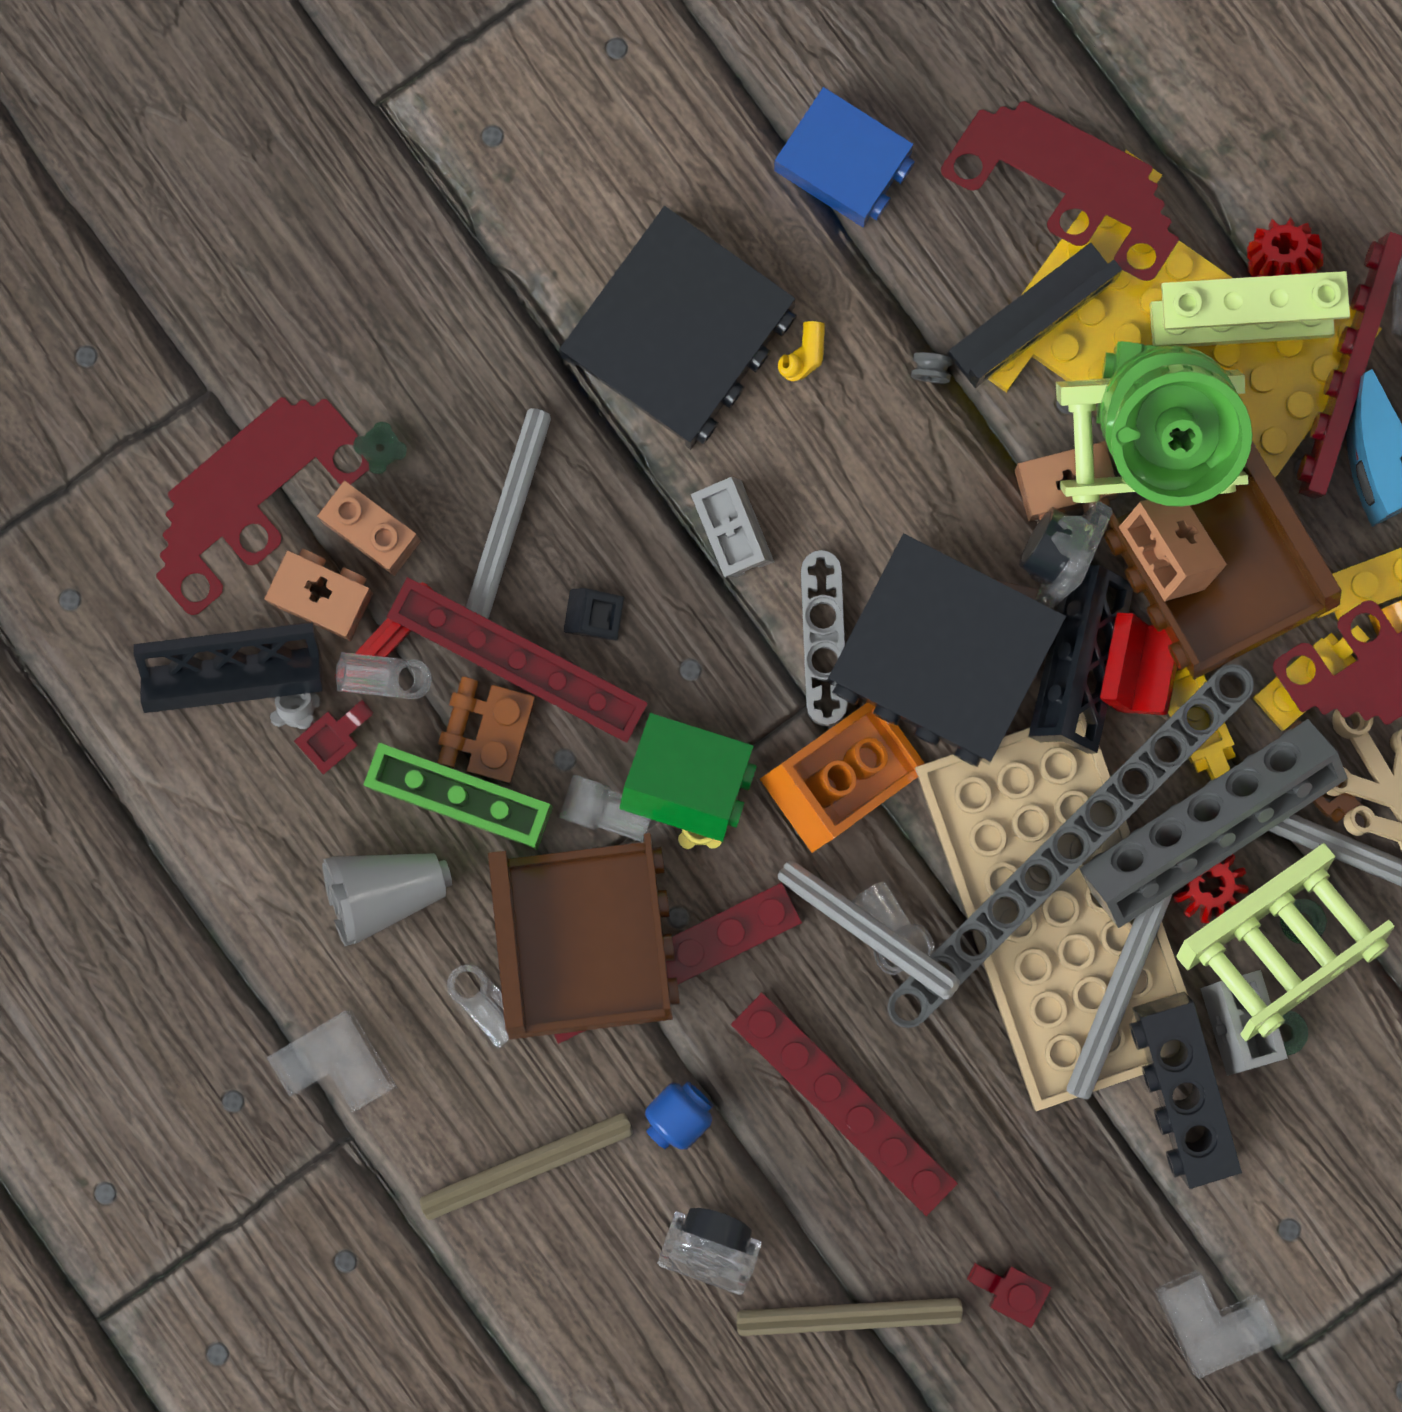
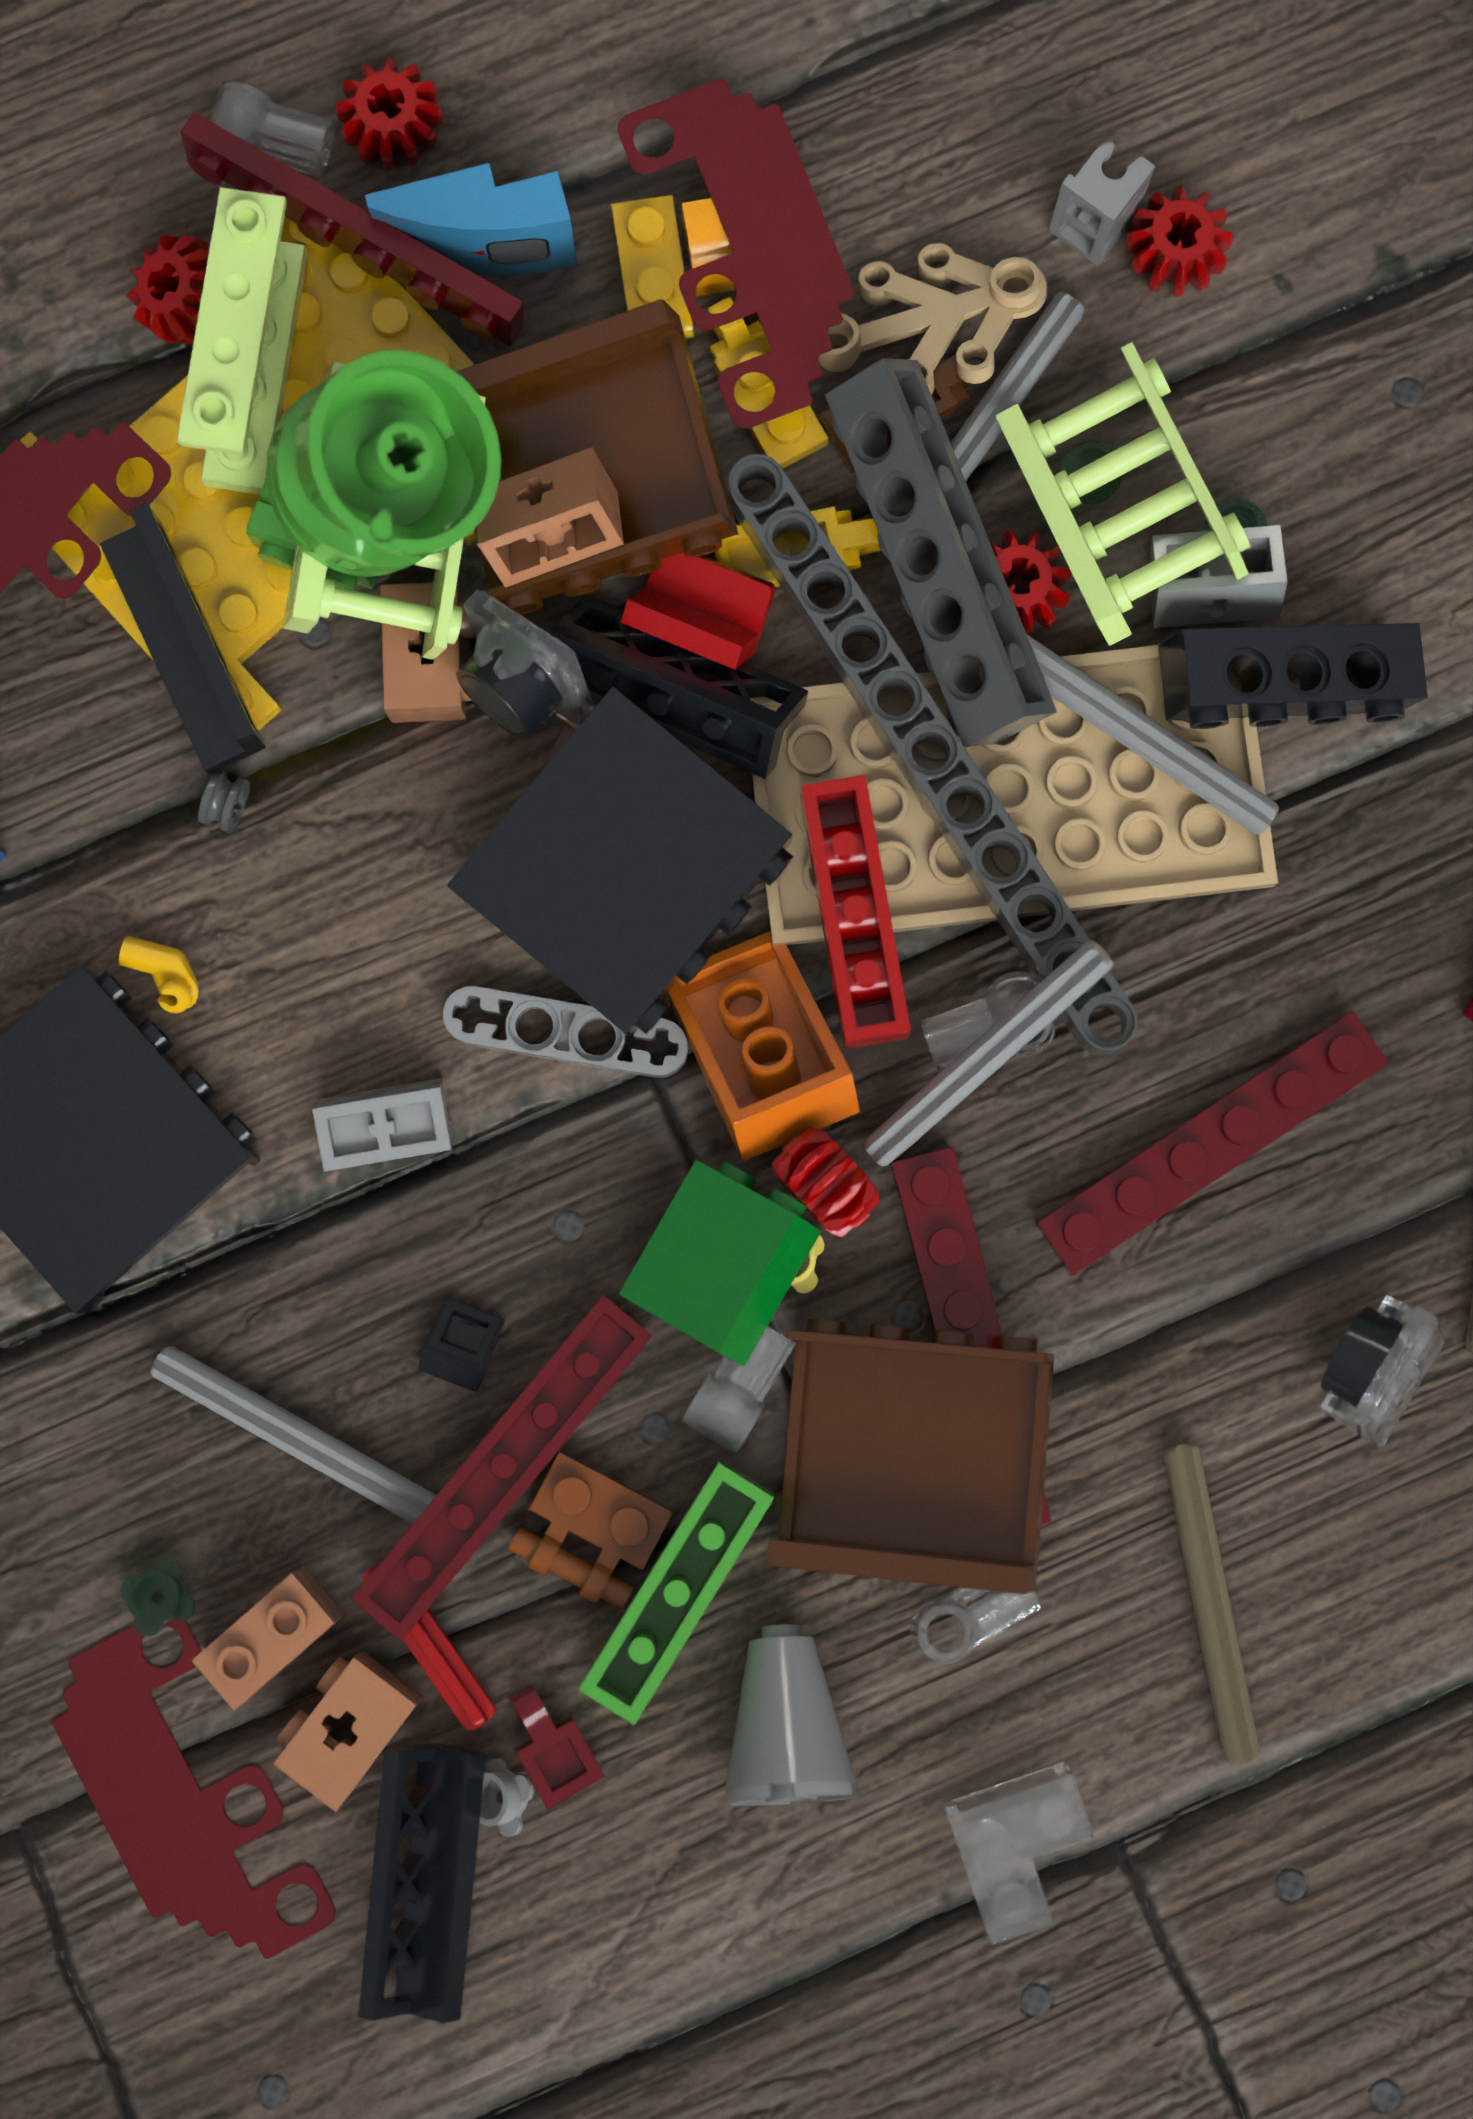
camera: 85 degrees left, 0 degrees up
(380, 676) = (483, 1666): clear piece -> none
(678, 1116) = (1186, 1374): blue head -> none
(757, 838) = (826, 1181): none -> red gear
(946, 816) = (854, 912): none -> red brick

